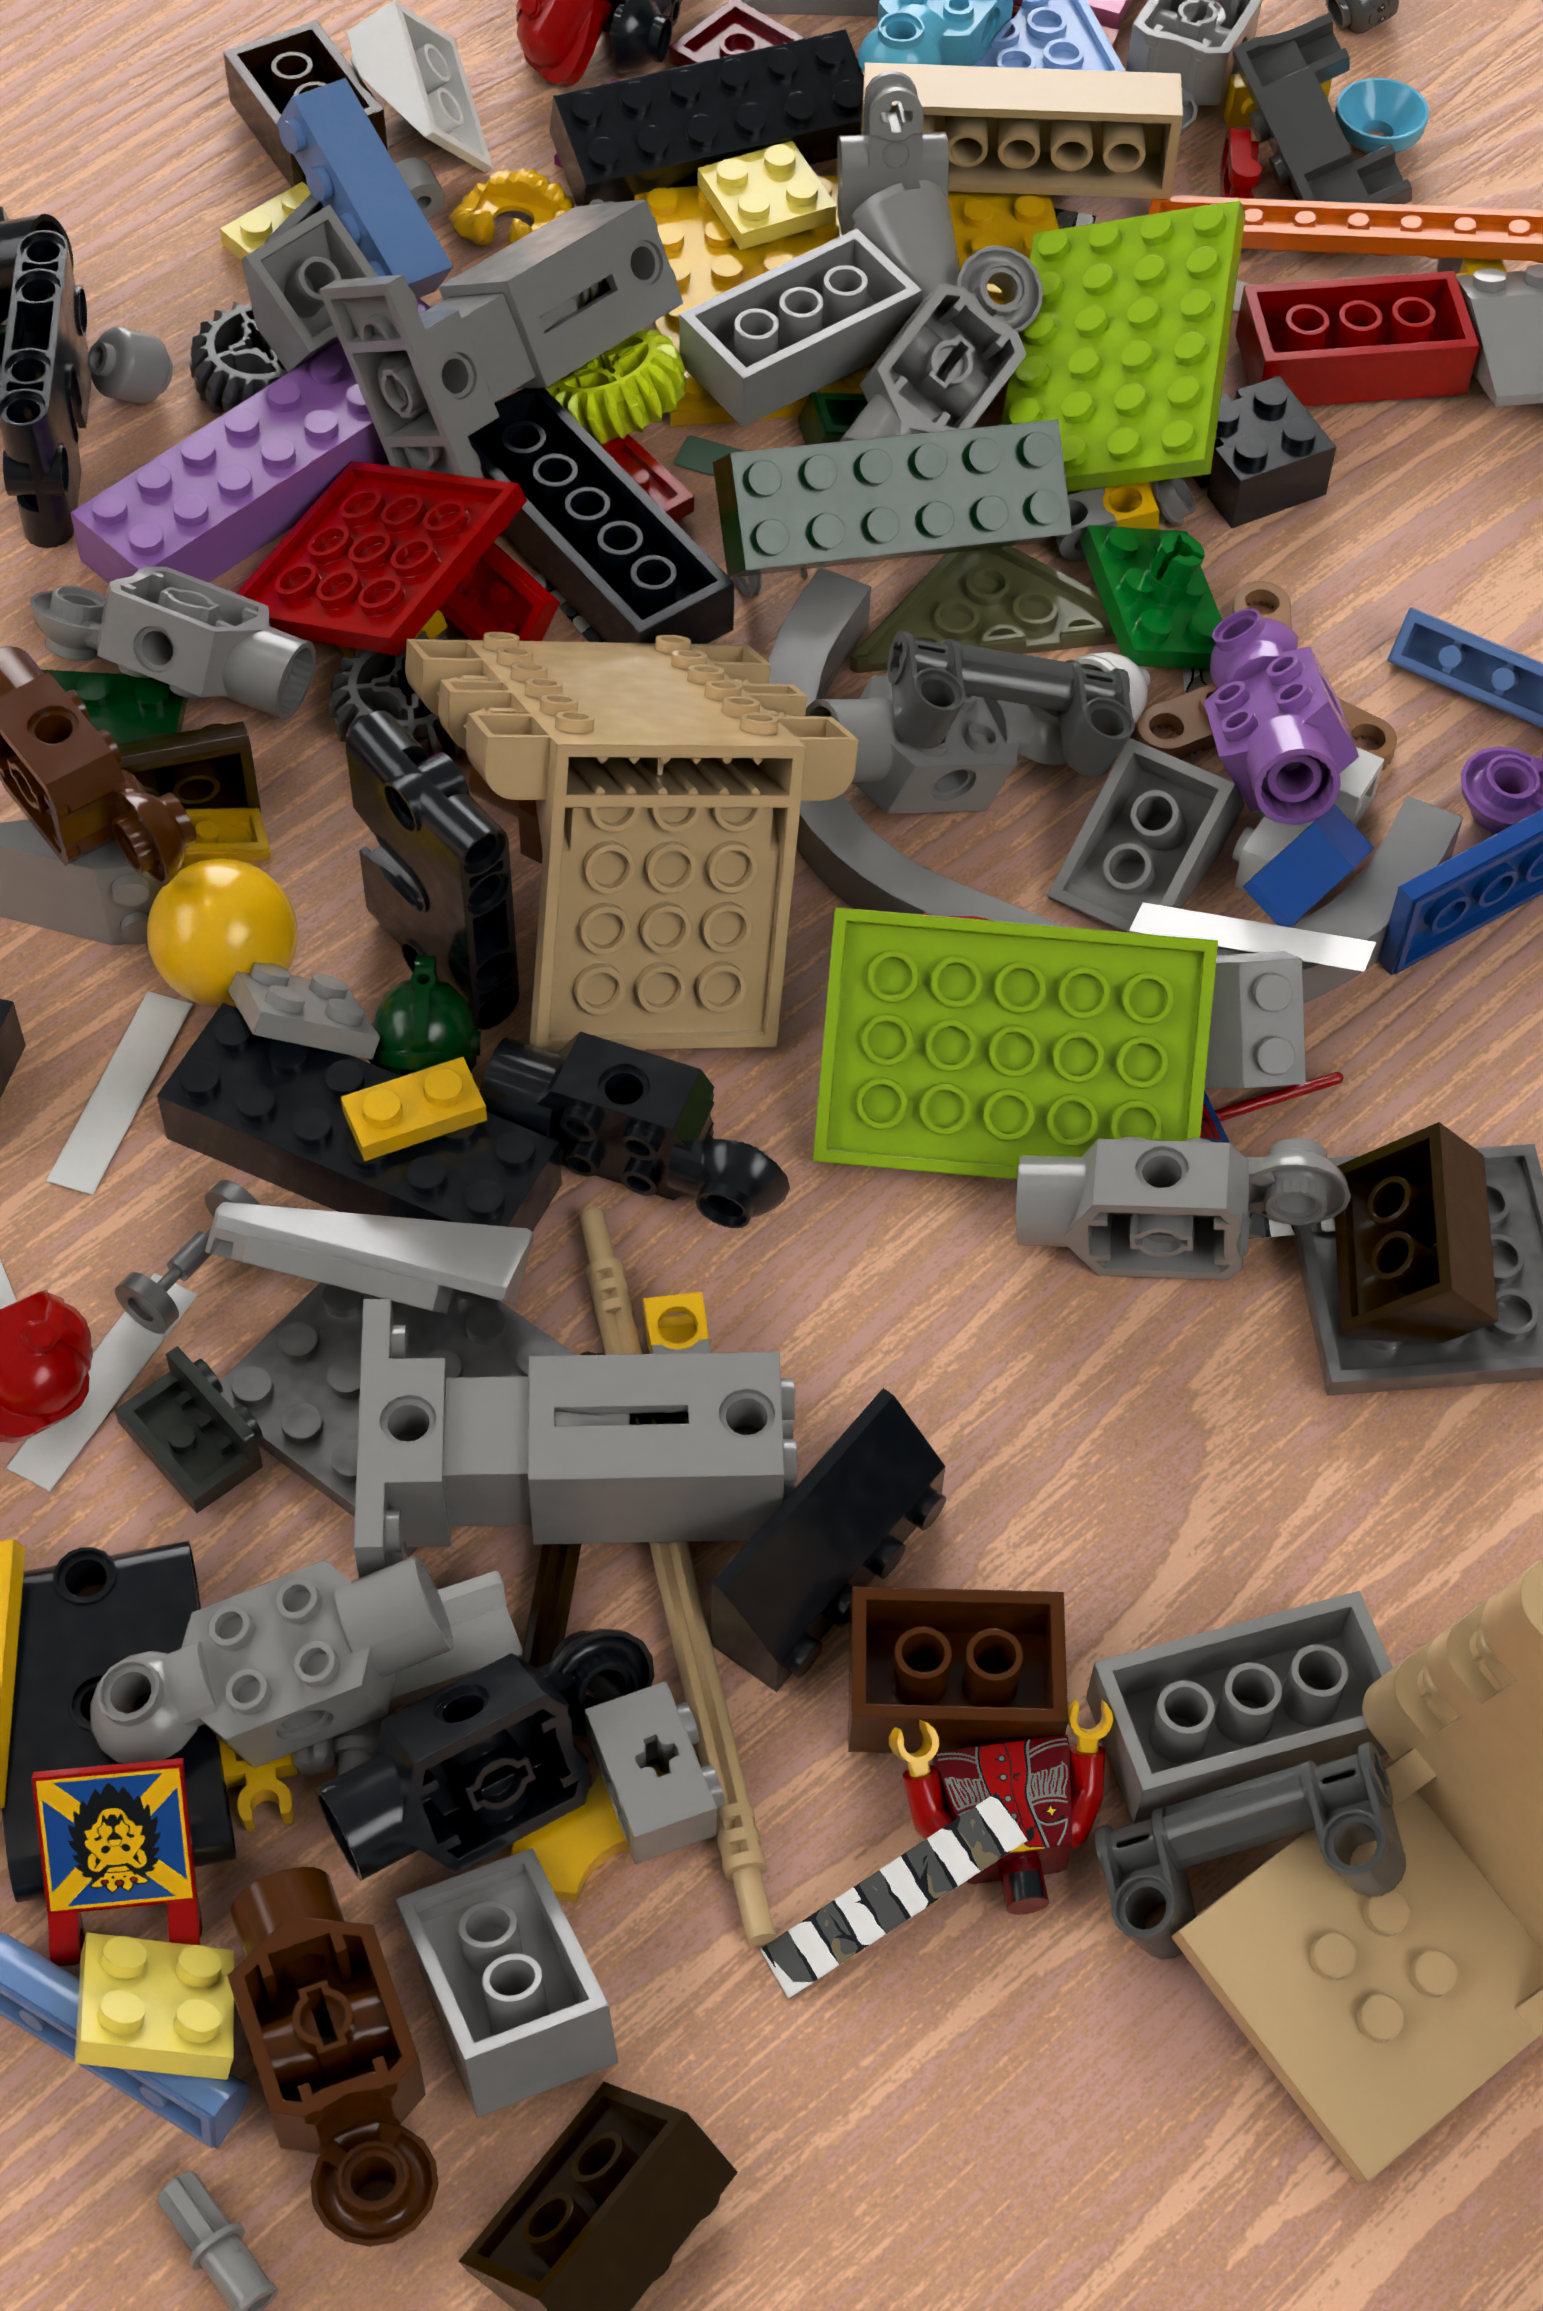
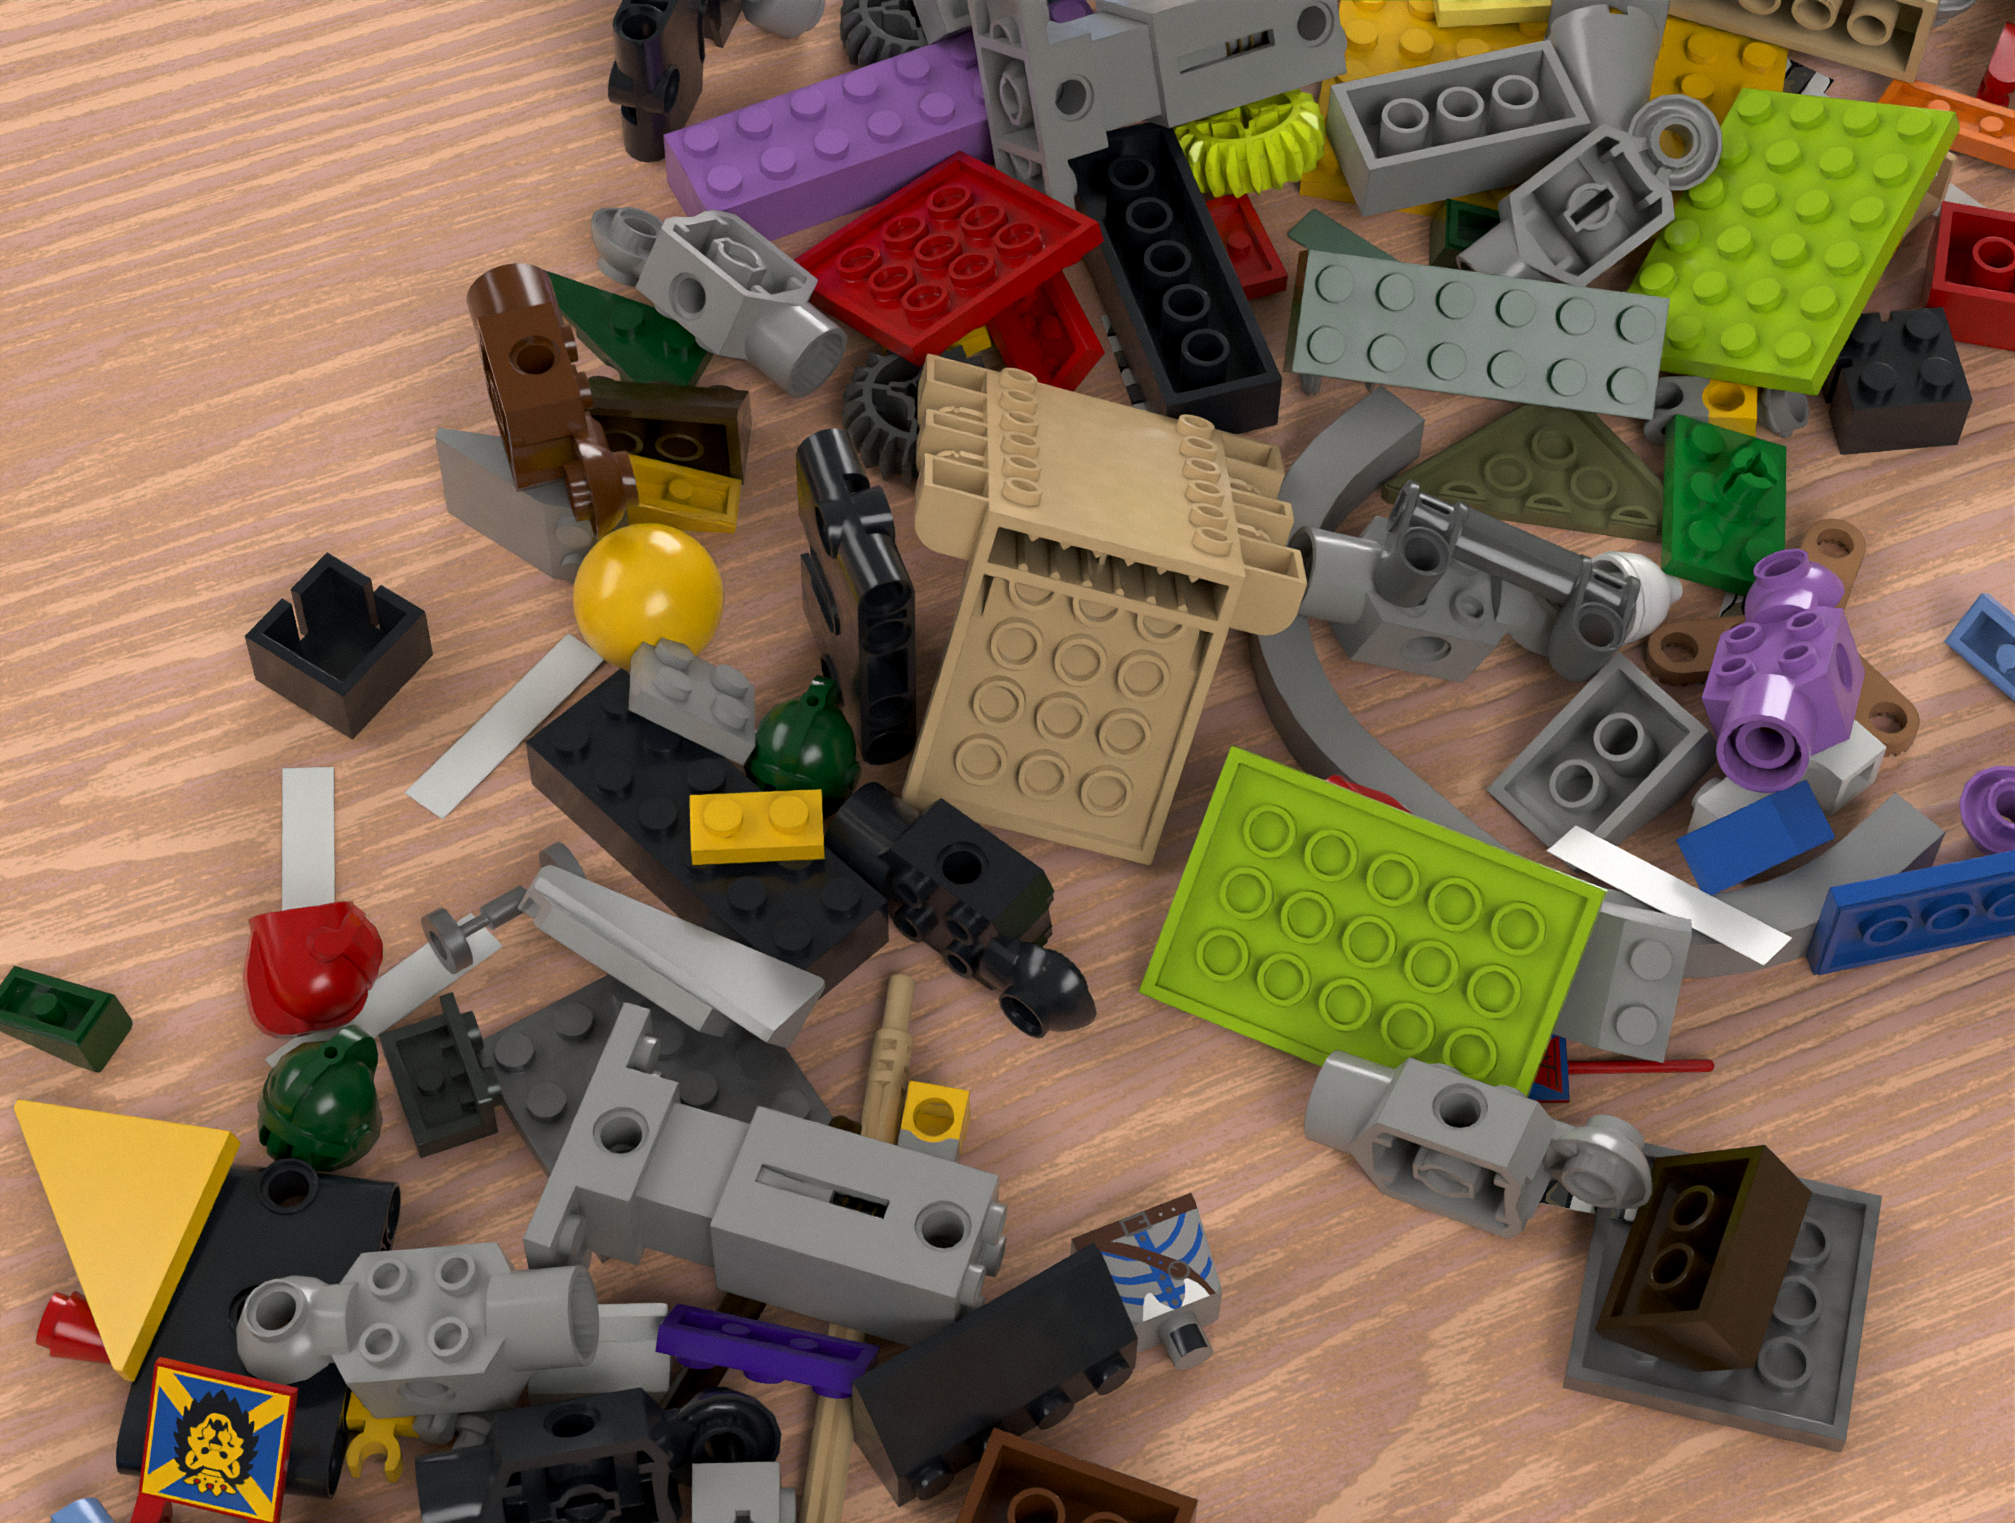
camera: 20 degrees right, 0 degrees up
(85, 1487) = (322, 1102): none -> dark green helmet
(608, 1585) = (764, 1350): none -> dark purple plate
(946, 1401) = (1163, 1277): none -> torso

